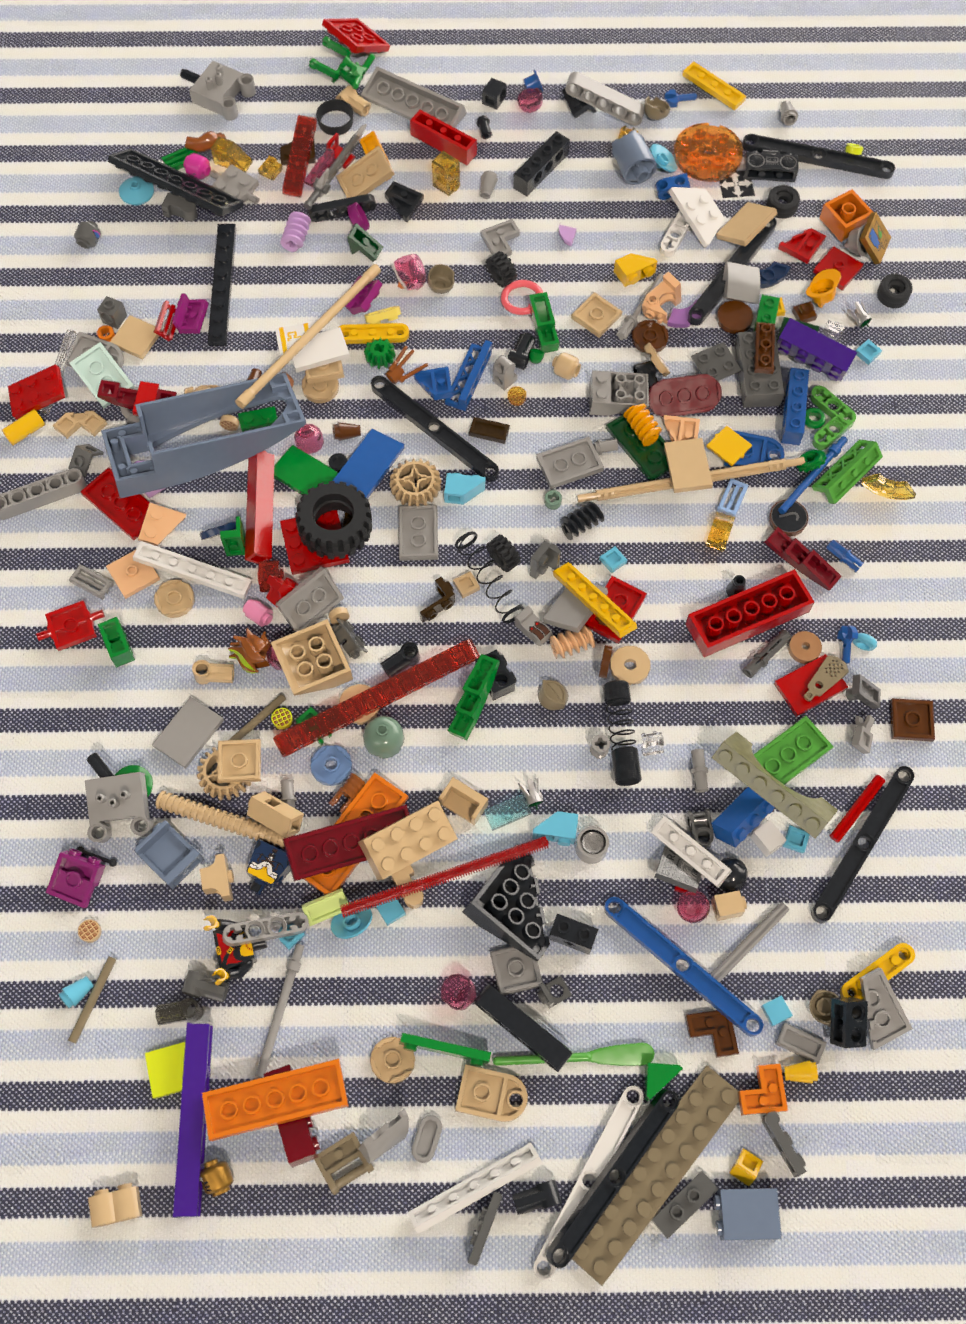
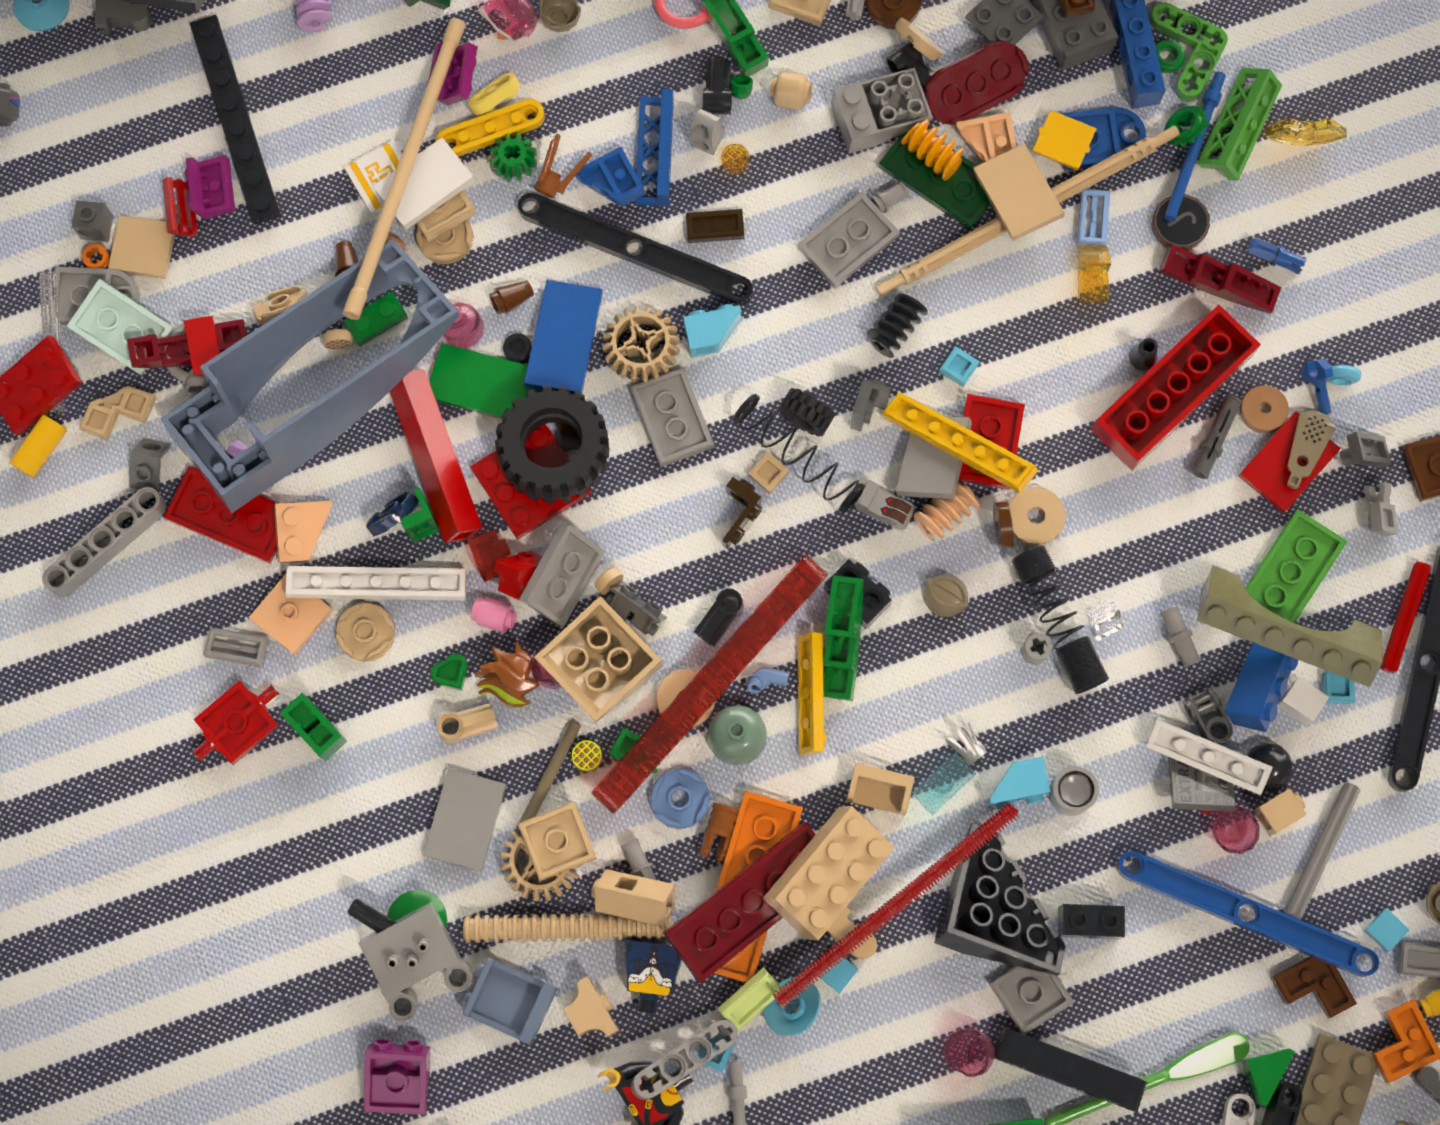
camera: 15 degrees left, 10 degrees up
(112, 862) = (435, 1037): black hinge -> none
(217, 640) = (451, 672): none -> green tile
(416, 707) = (764, 677): none -> medium blue arm
(432, 749) = (810, 694): none -> yellow plate
(545, 995) = (1082, 1015): dark grey bracket -> none
(557, 503) = (836, 299): sand green bush -> none

